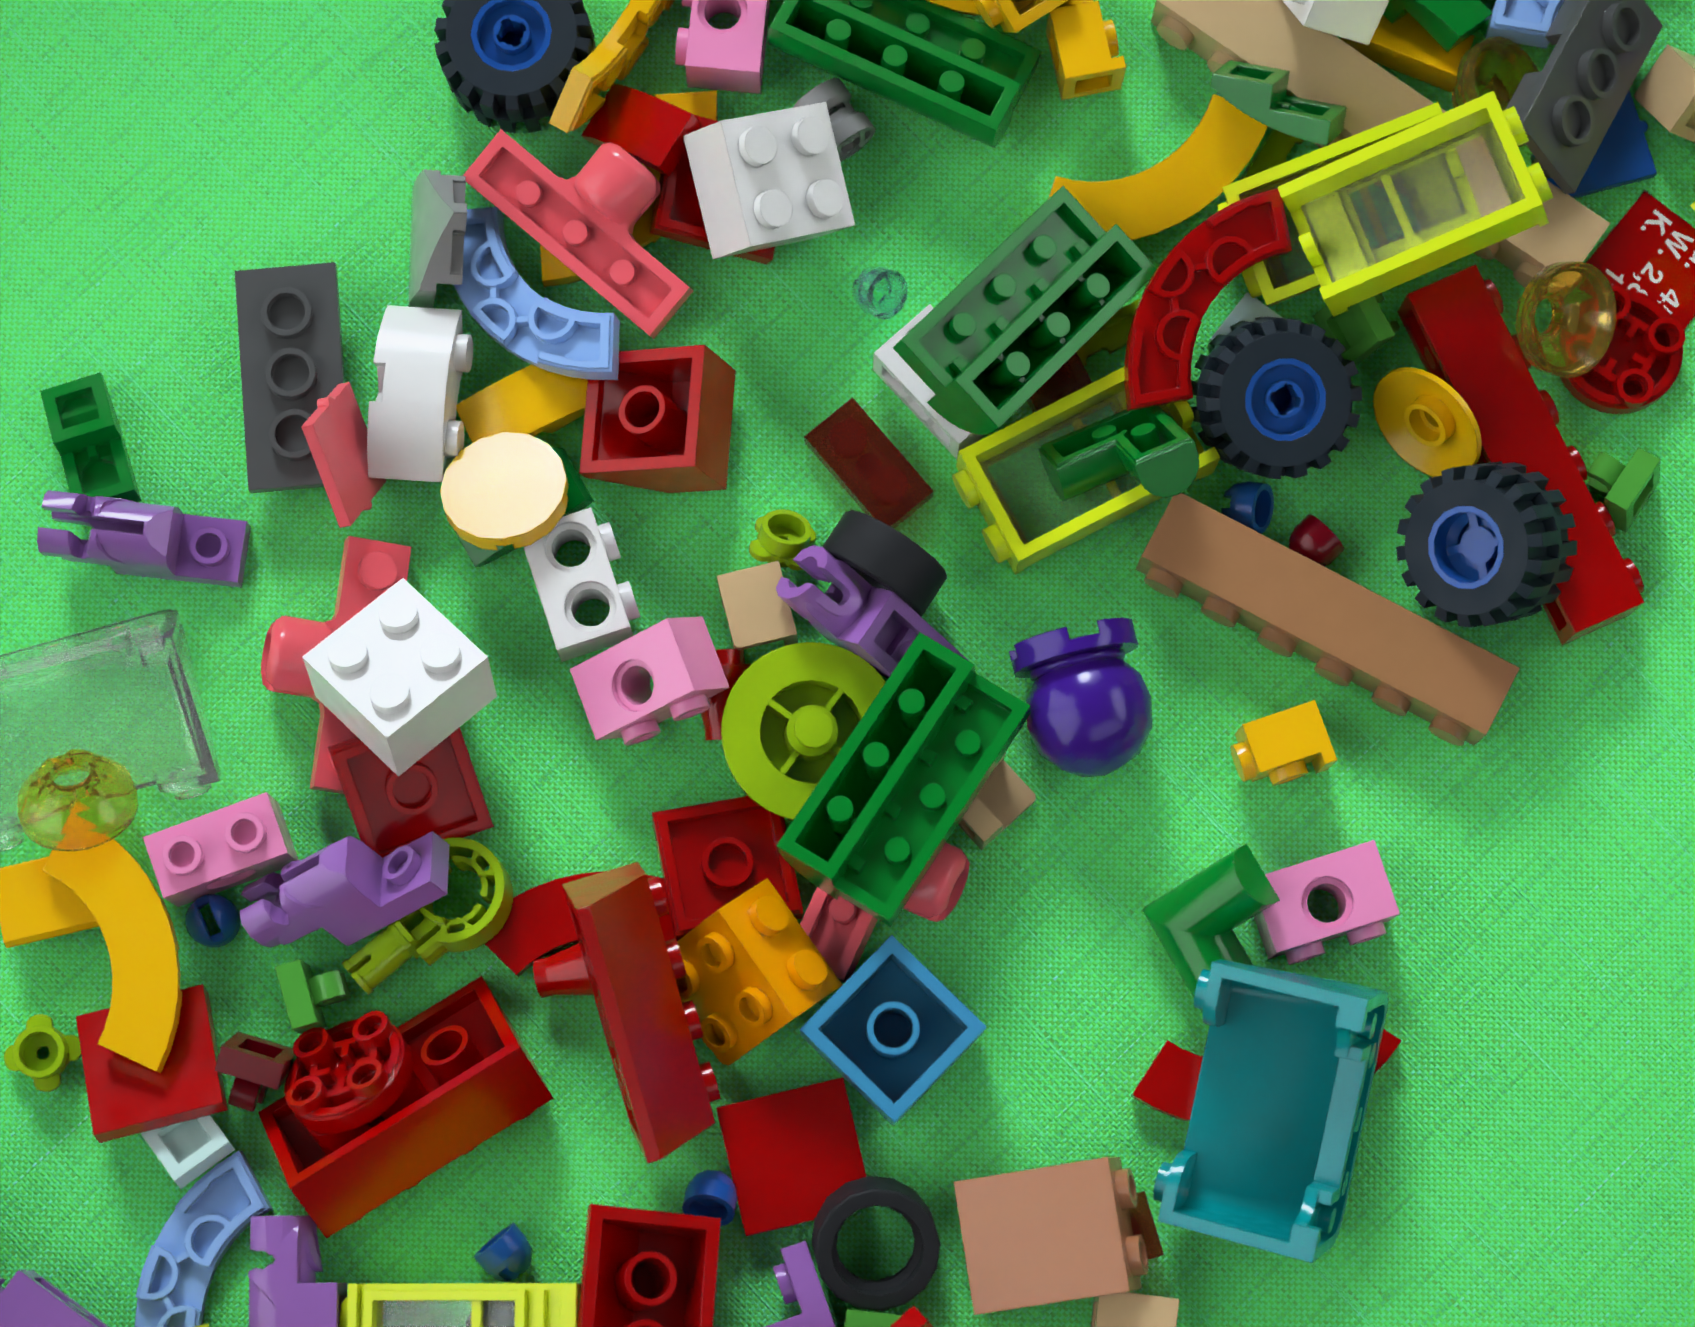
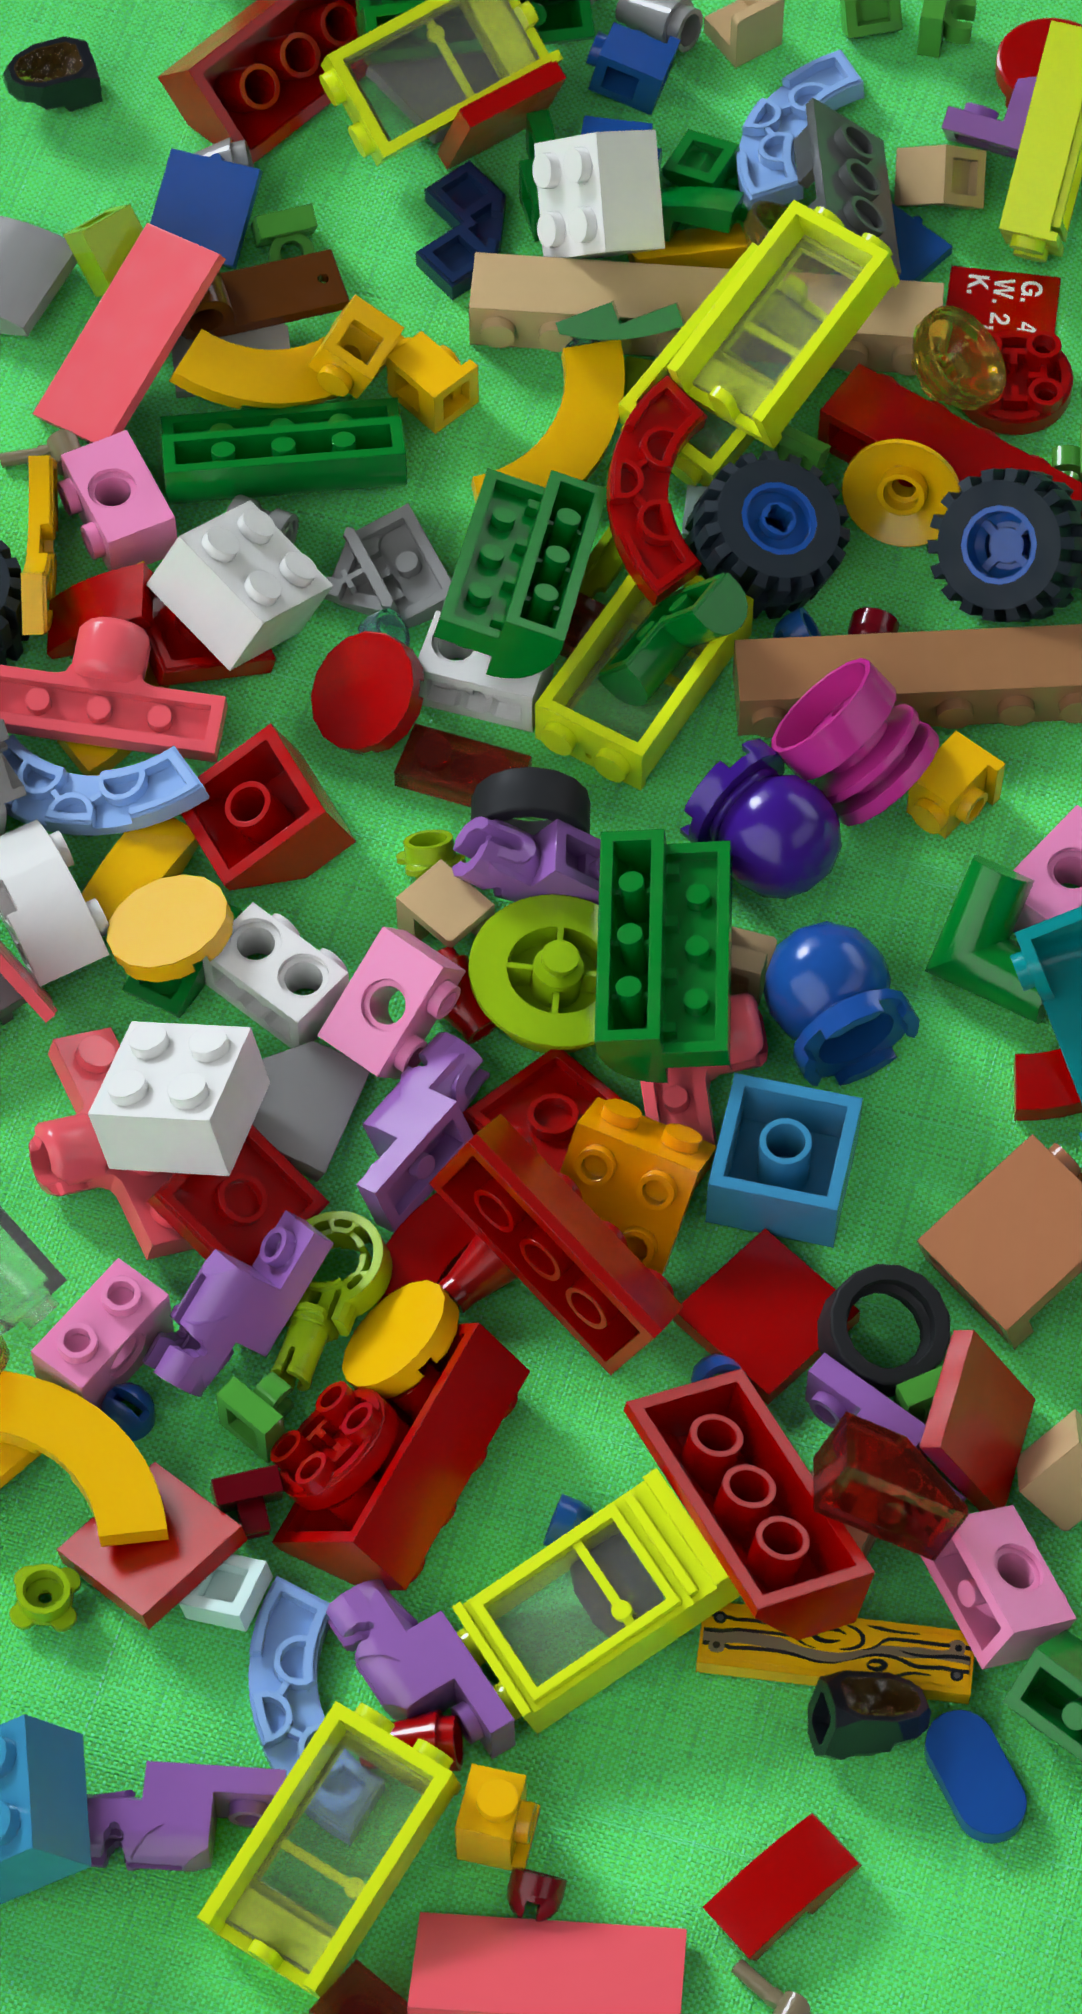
camera: 30 degrees left, 20 degrees down
(461, 1005) = (400, 1339): none -> yellow tile
(527, 722) = (309, 1104): none -> light grey slope
(605, 809) = (420, 1128): none -> medium lavender plate
(823, 348) = (367, 693): none -> red tile
(930, 224) = (390, 568): none -> light grey slope
(1034, 898) = (836, 1003): none -> blue tile
(1210, 666) = (855, 741): none -> dark pink wheel

